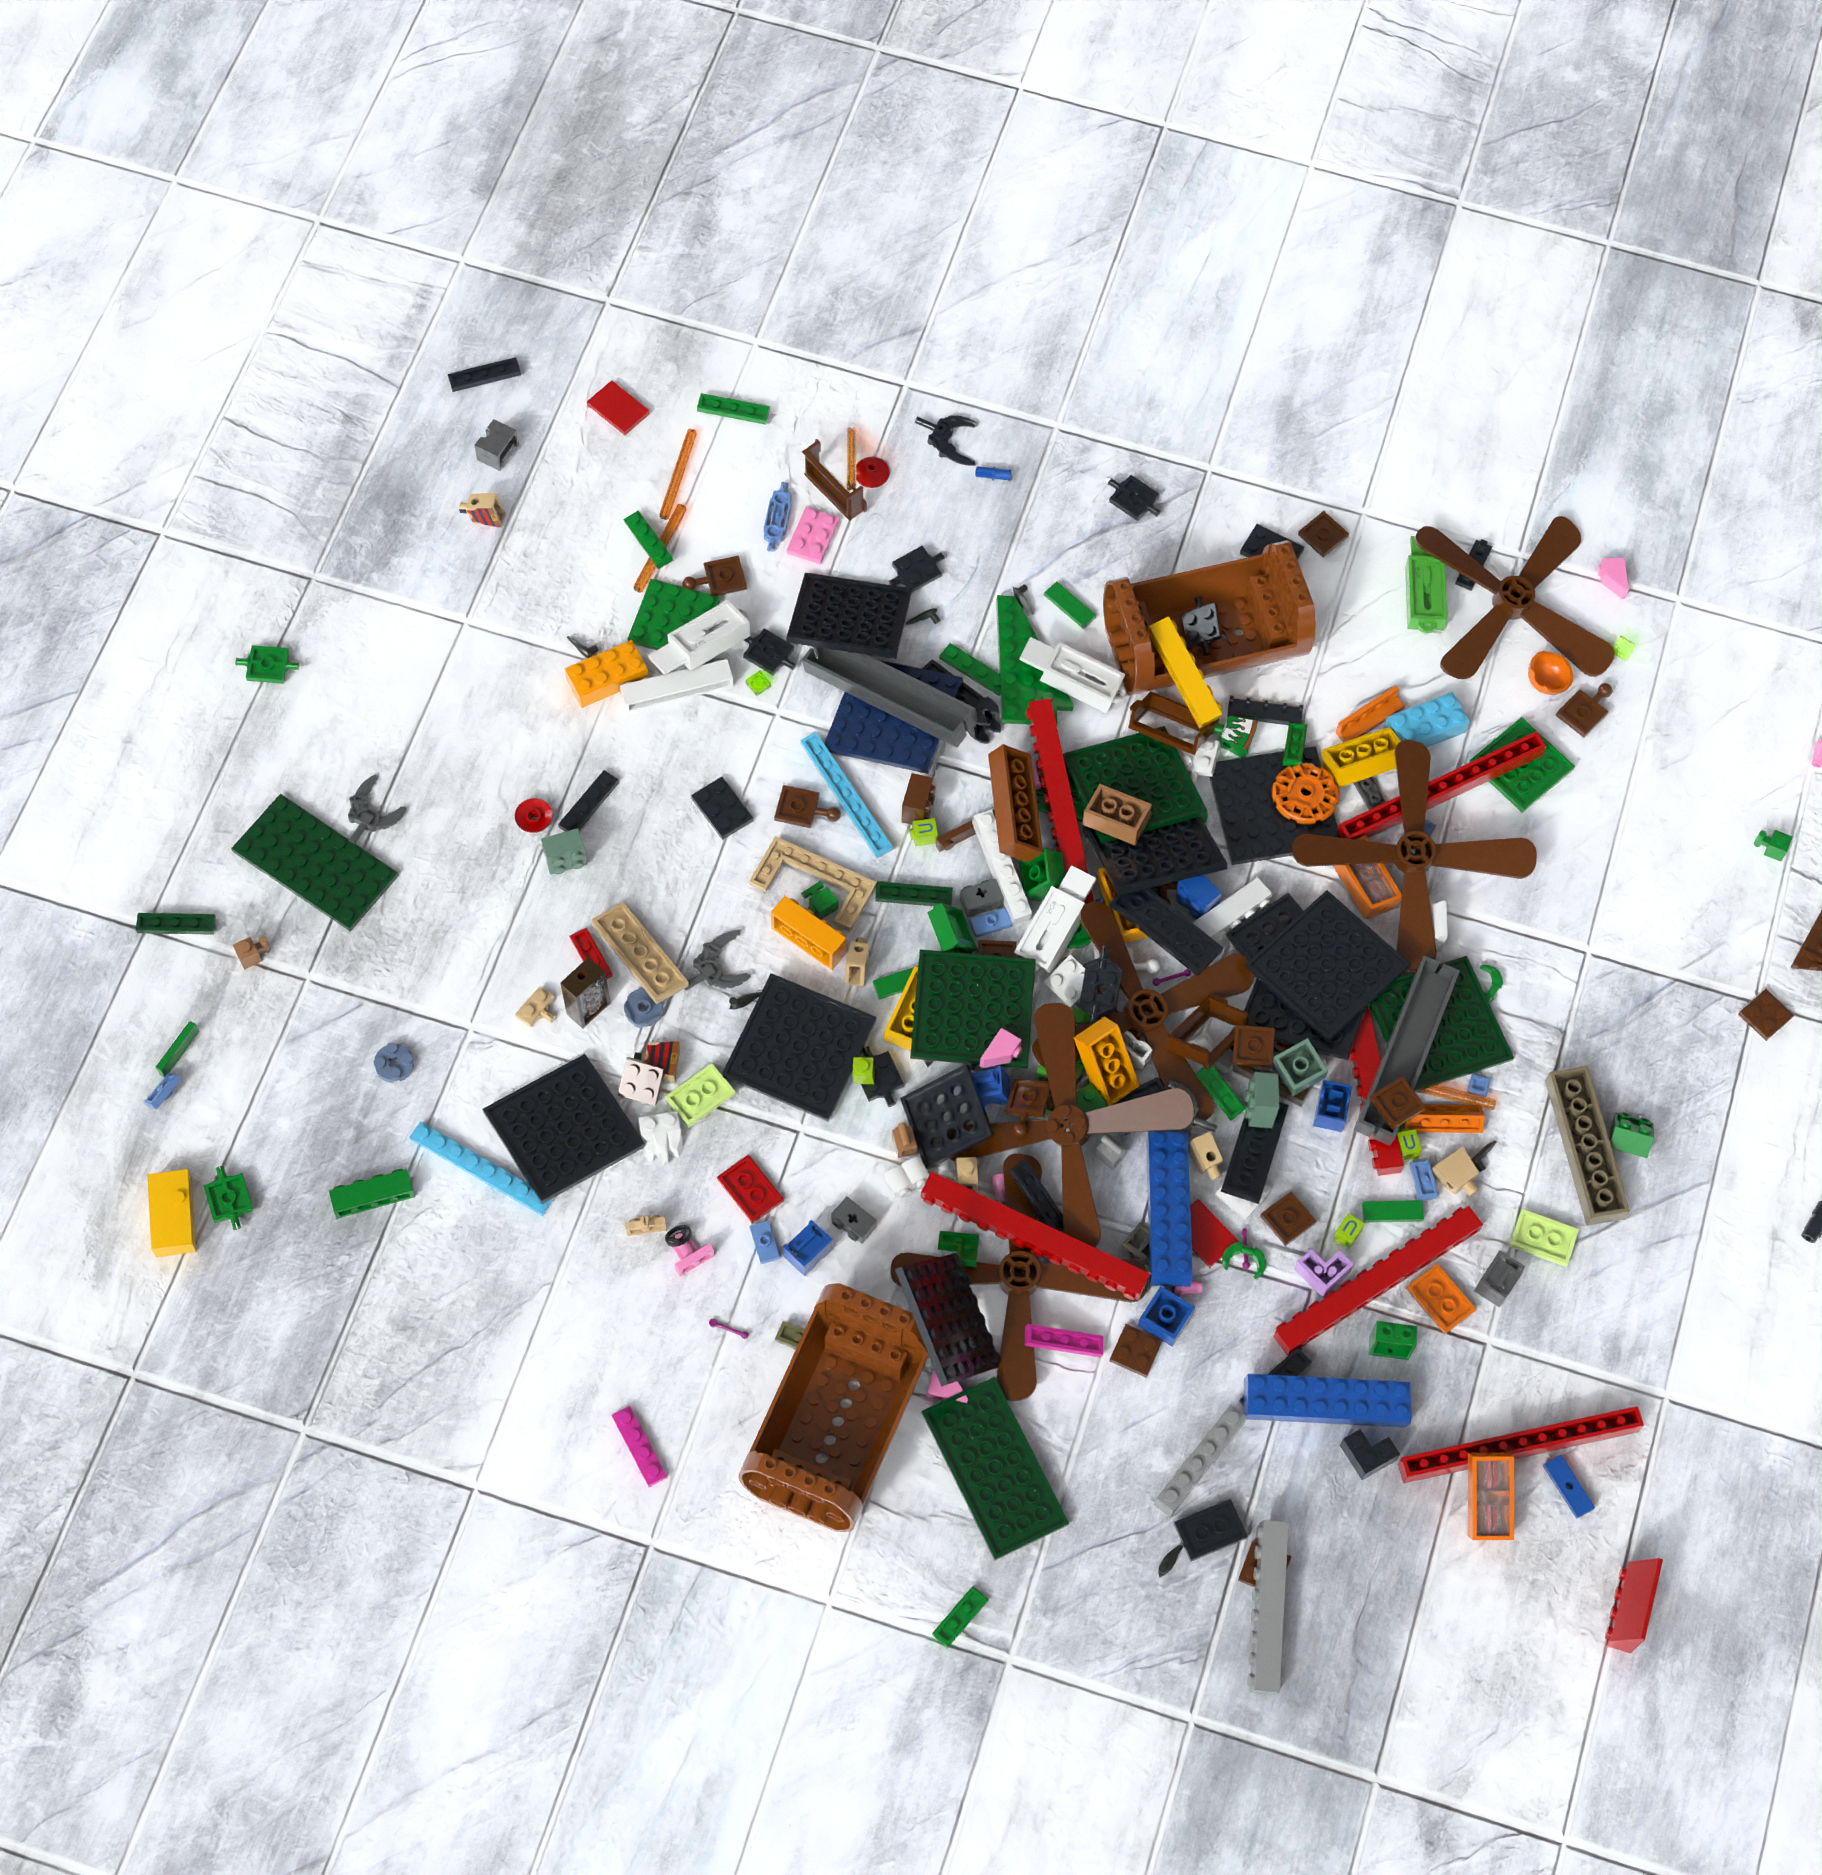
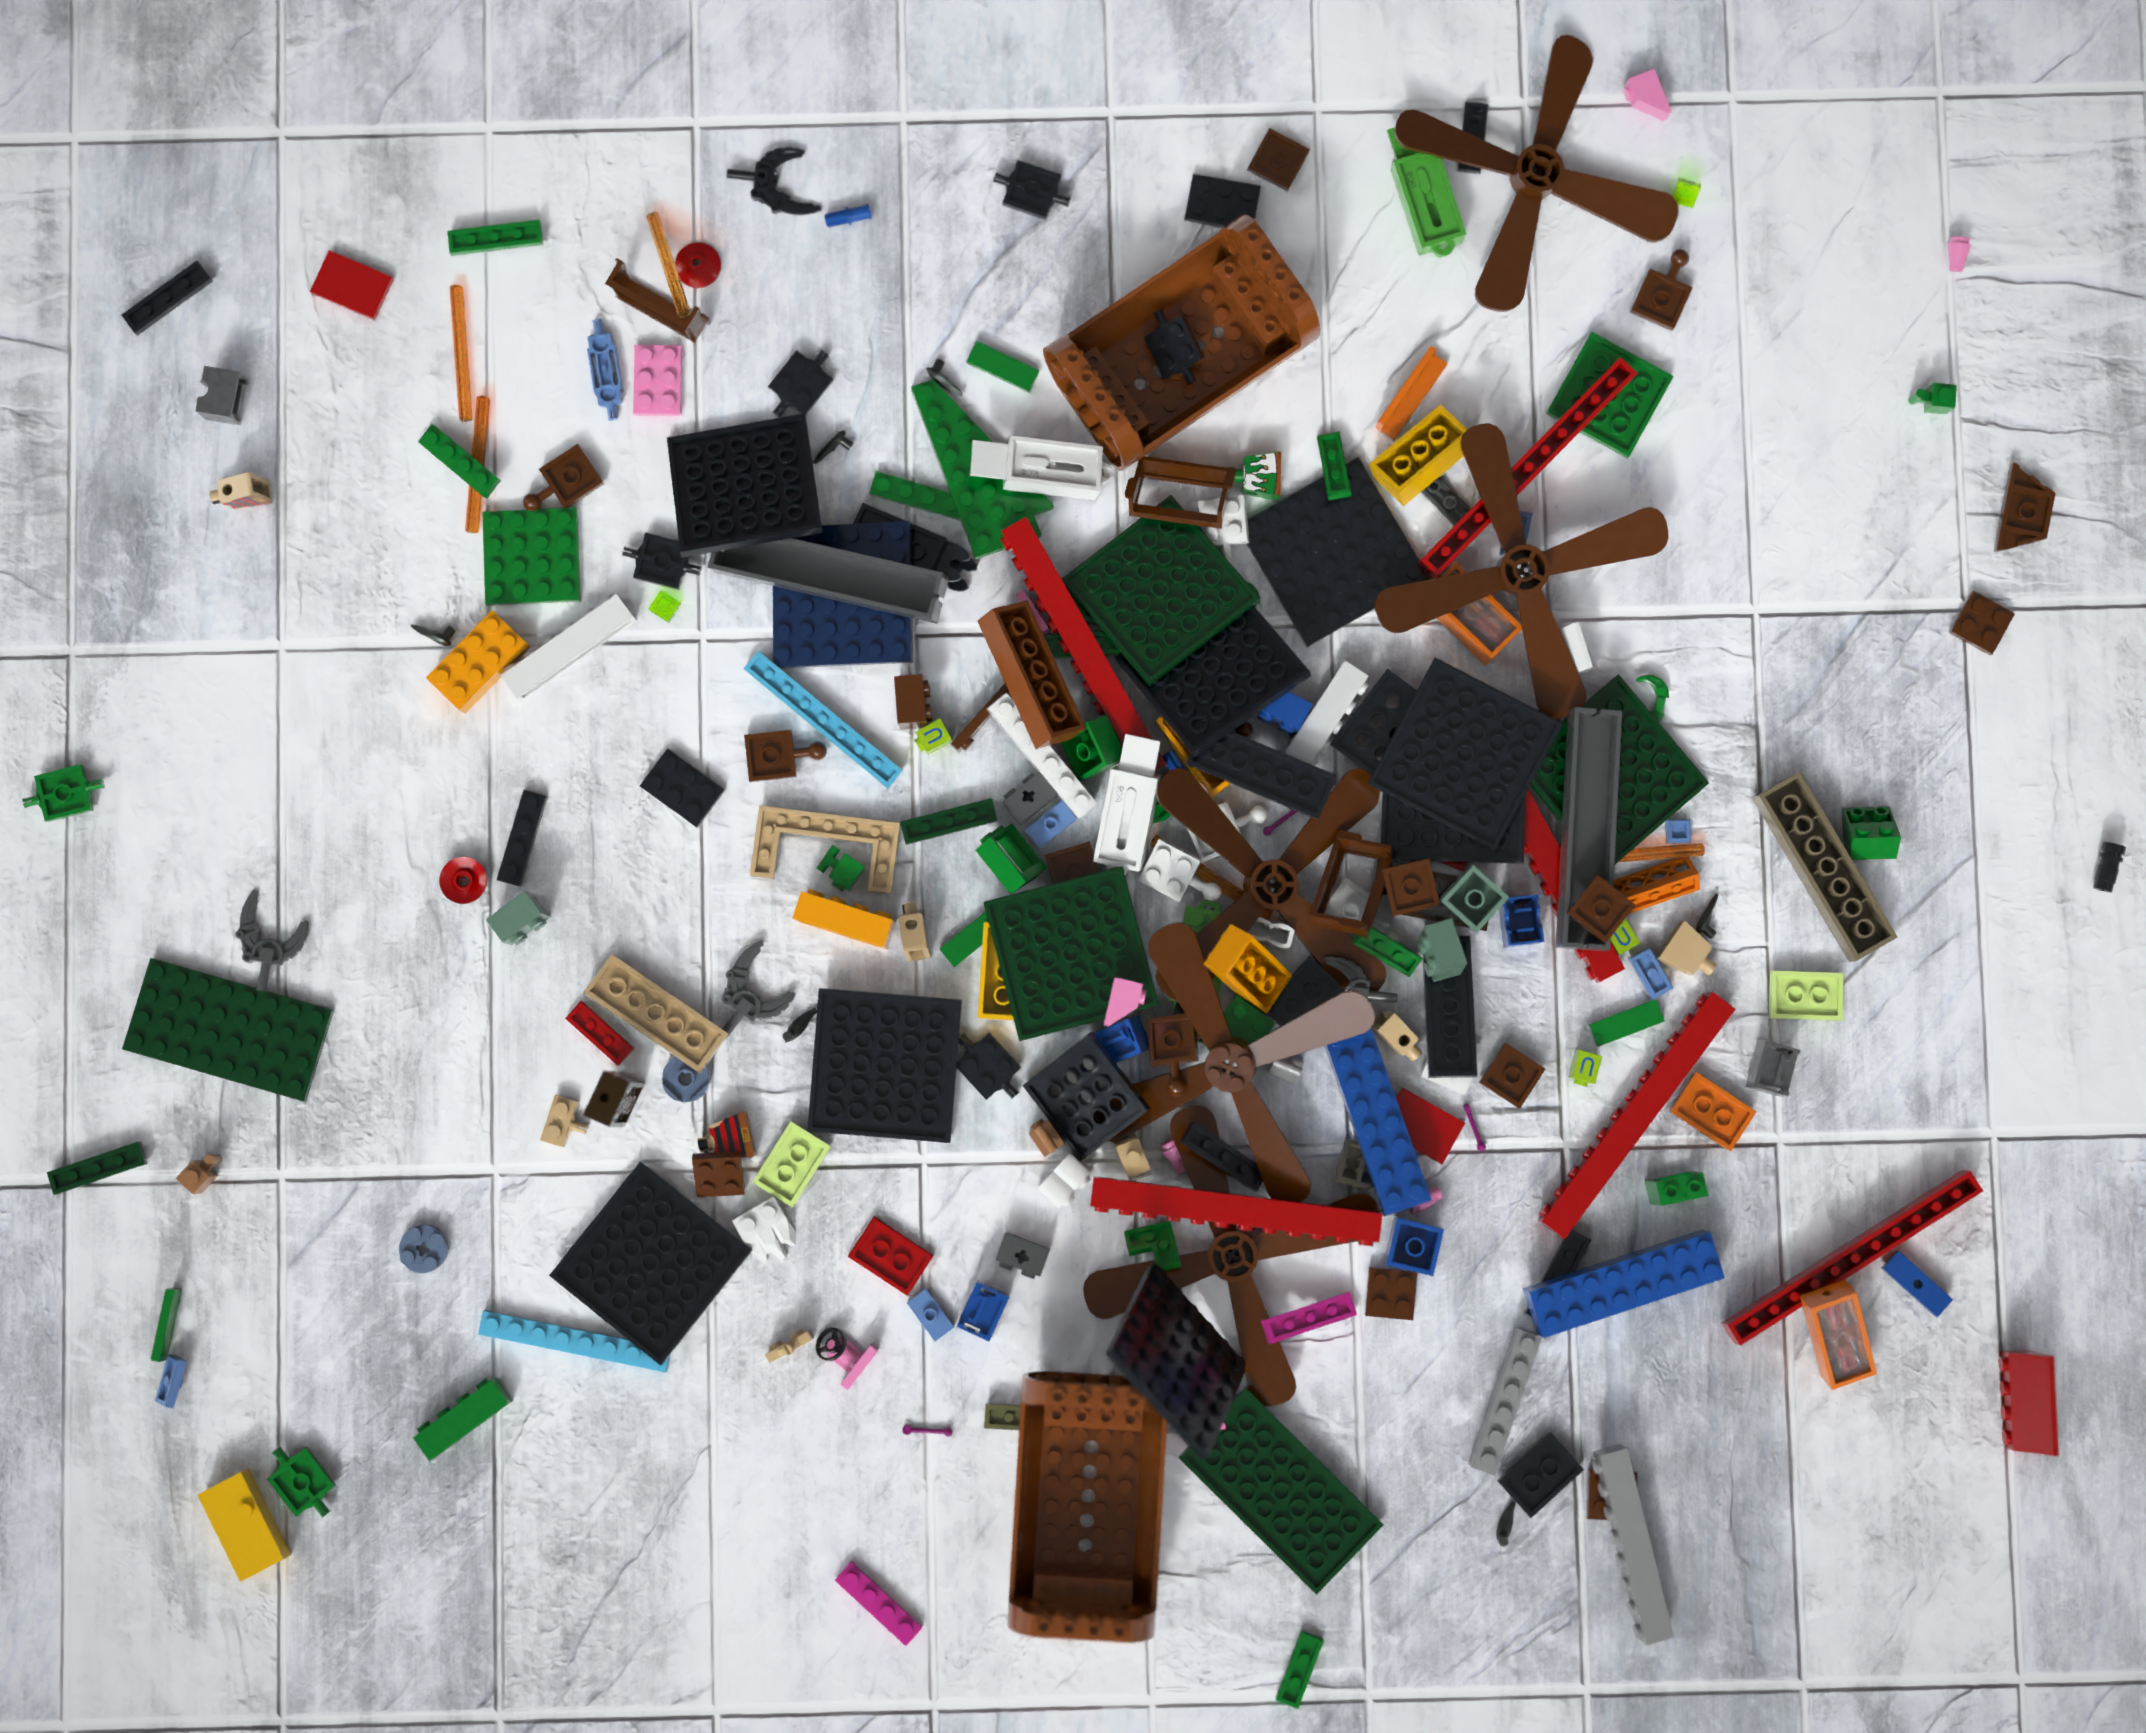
camera: 15 degrees left, 20 degrees up
(703, 638) = (577, 581): white piece -> none
(863, 1070) = (970, 1073): lime brick -> none
(1099, 973) = (1207, 899): black plate -> none
(1117, 814) = (1158, 649): medium nougat brick -> none
(1184, 672) = (1177, 433): yellow brick -> none
(1256, 1254) = (1467, 1132): green piece -> none
(1264, 711) = (1283, 430): black hinge -> none
(1308, 803) = (1364, 542): orange plate -> none
(1323, 1275) = (1573, 1134): lavender brick -> none
(1368, 1458) = (1687, 1332): black brick -> none
(1430, 721) = (1483, 380): medium azure brick -> none
(1550, 673) = (1610, 262): orange cylinder -> none

